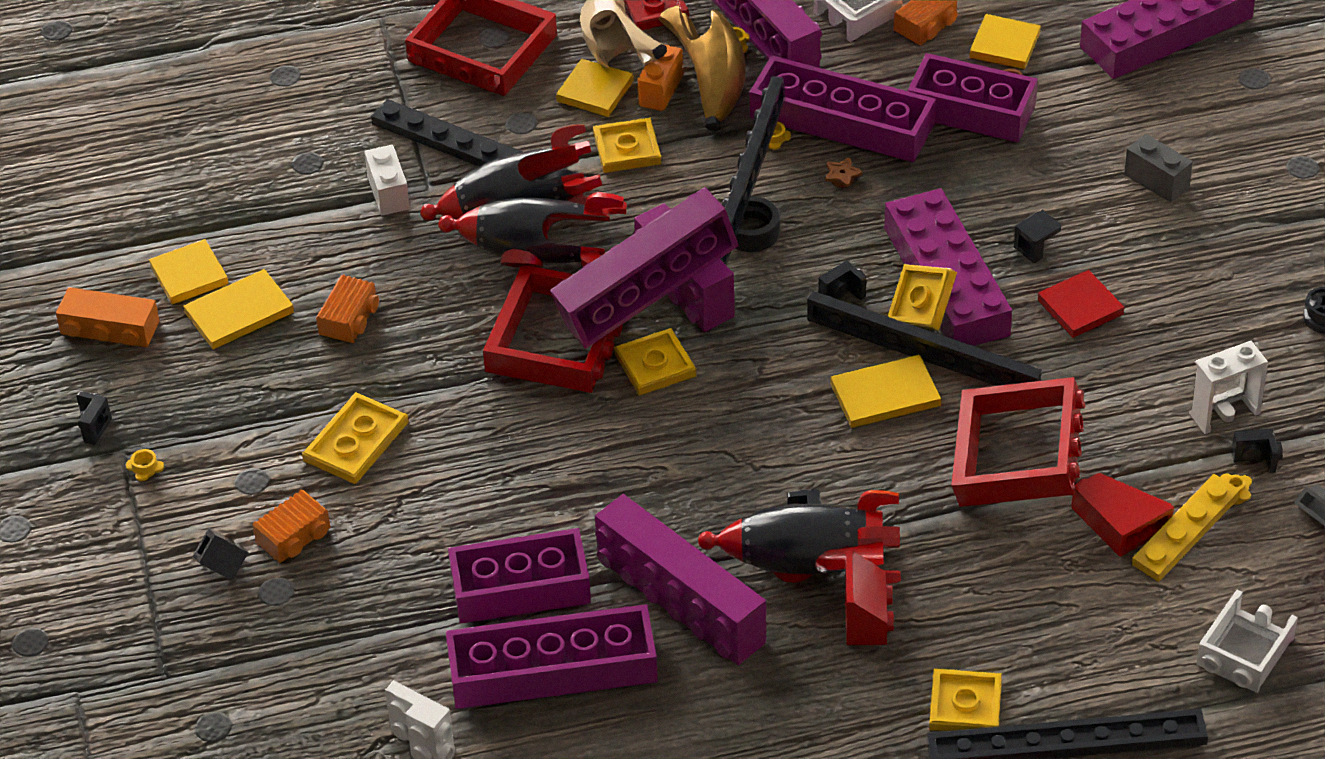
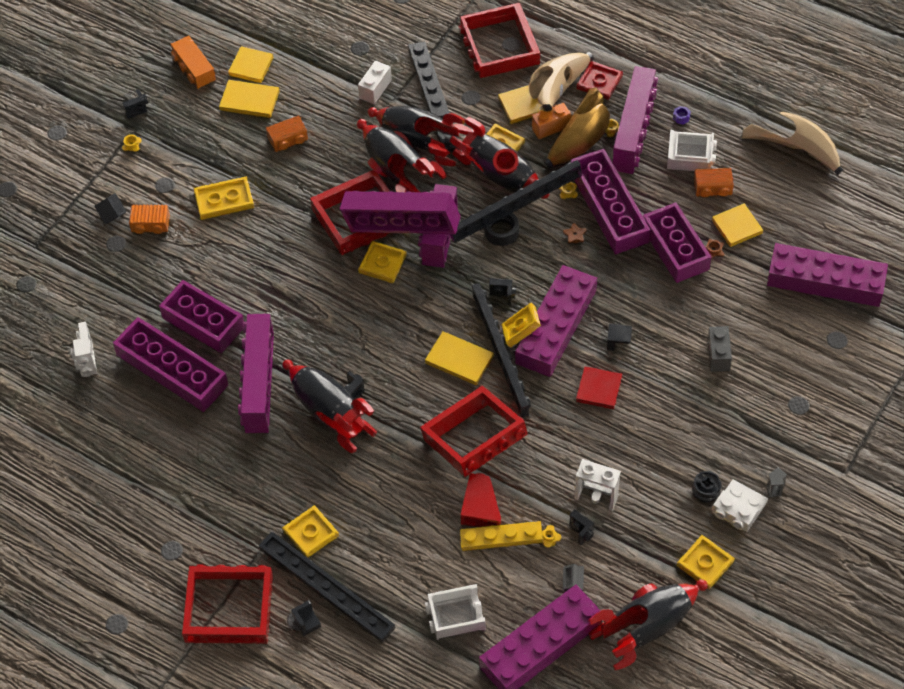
camera: 45 degrees right, 10 degrees up
(660, 152) = (494, 158): none -> piece
(866, 602) = (318, 448): red slope -> none

